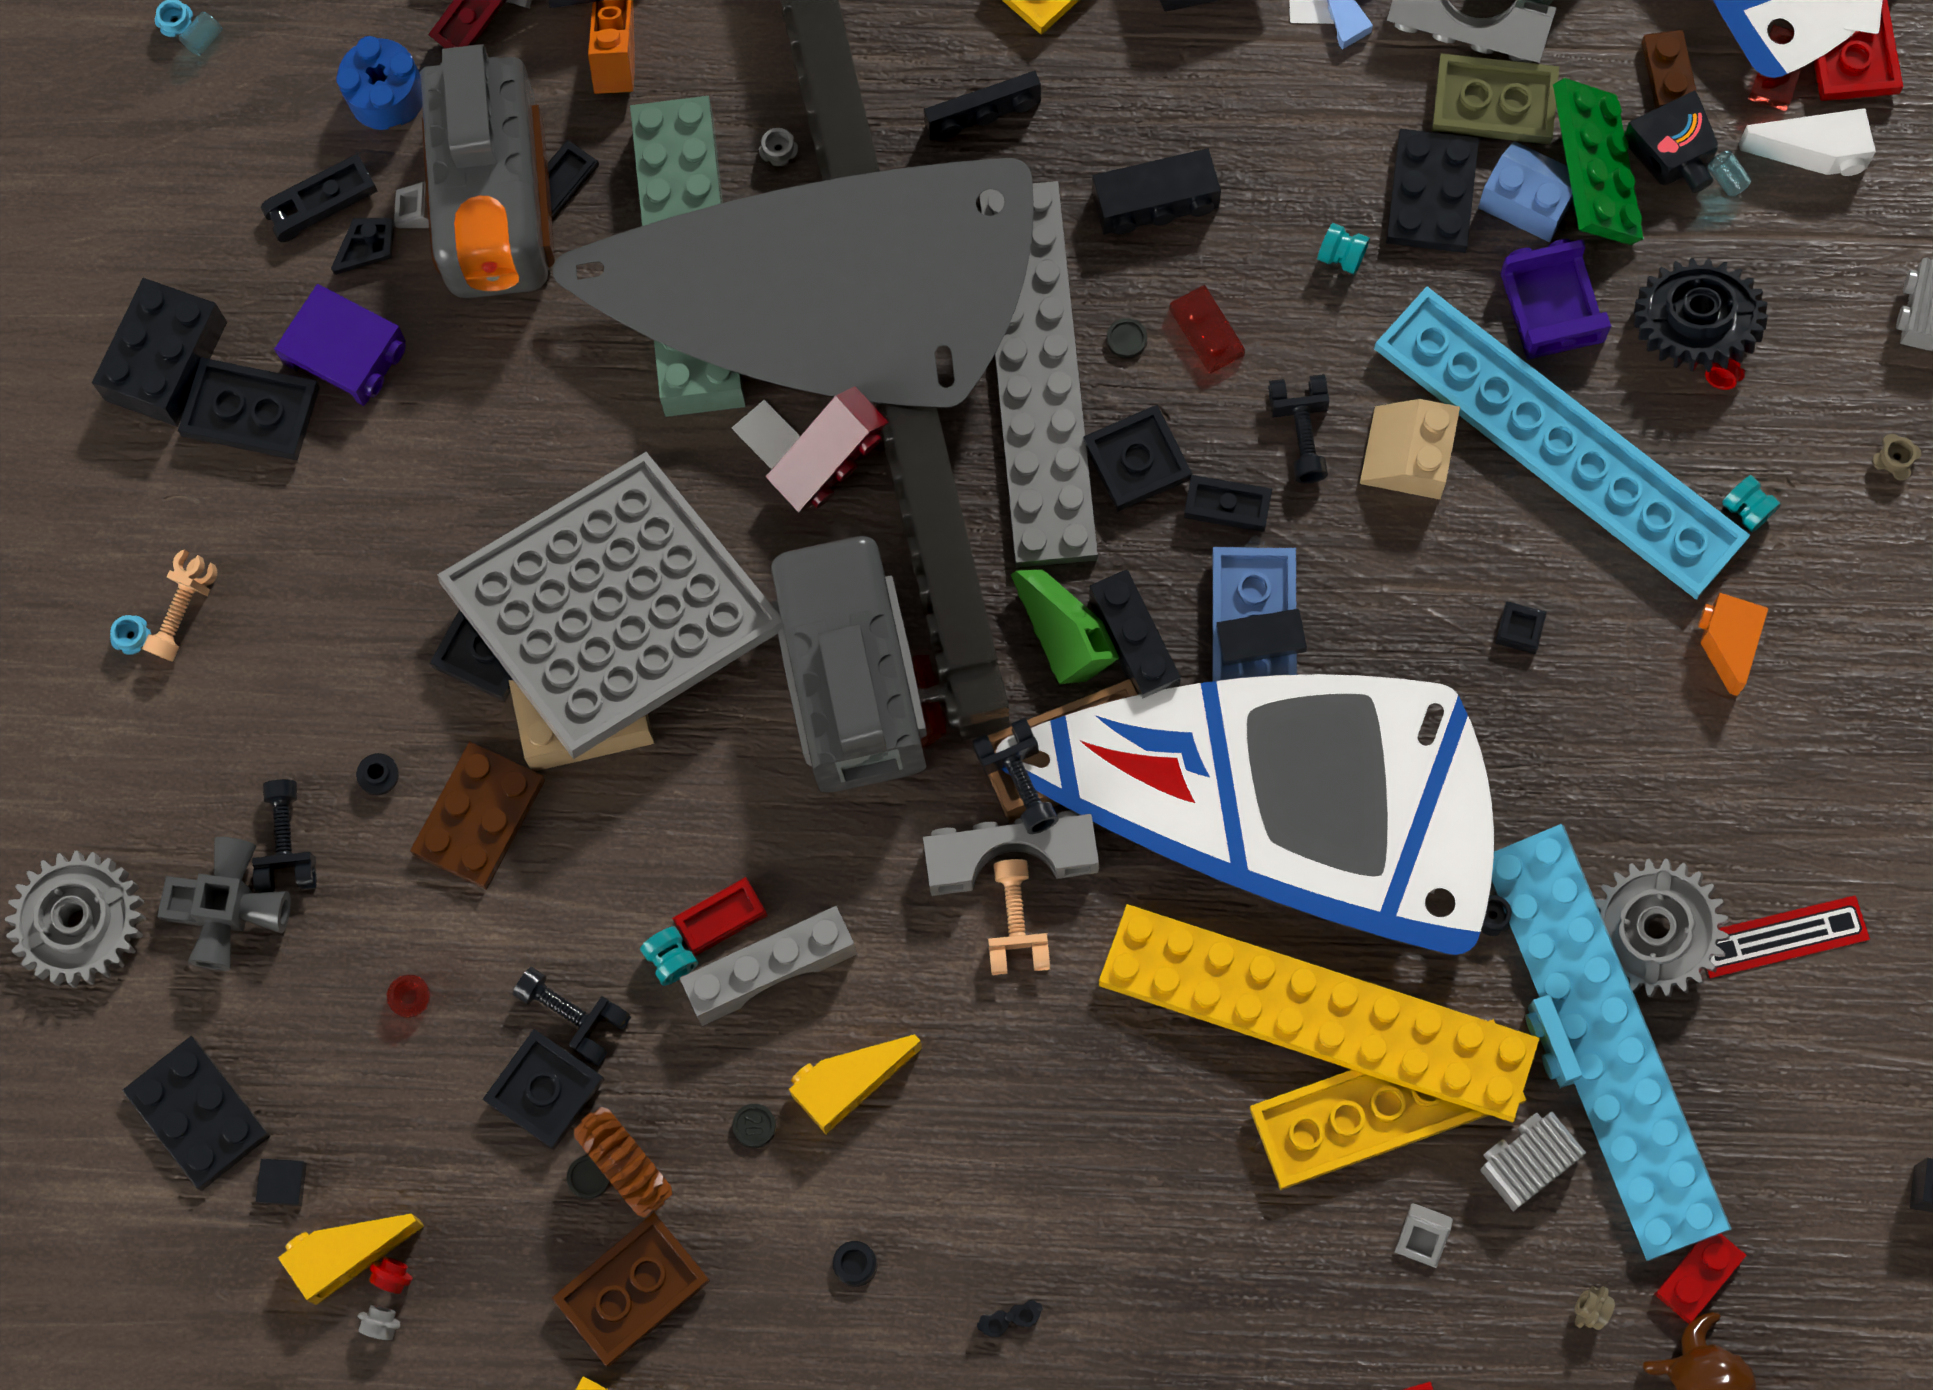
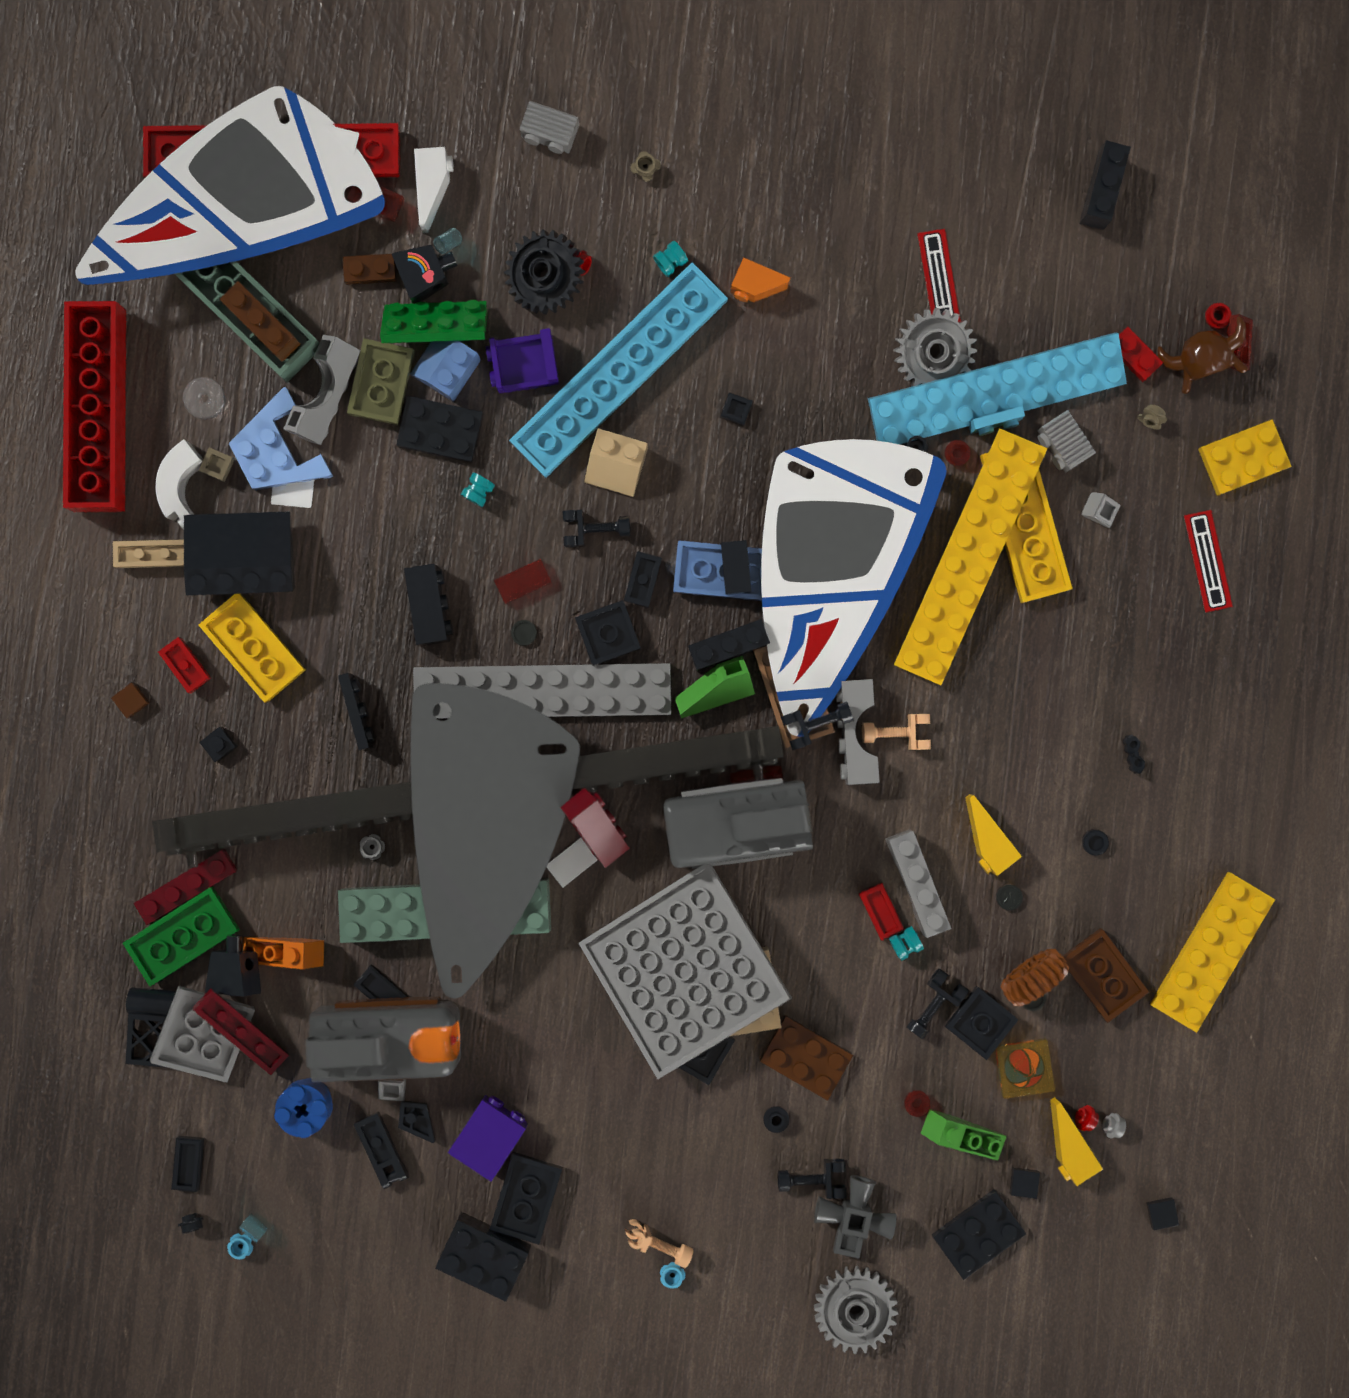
camera: 90 degrees left, 15 degrees up
(357, 1072) = (962, 1135): none -> bright green slope
(470, 1170) = (1024, 1068): none -> clear yellow tile
(1501, 975) = (965, 452): none -> clear red plate

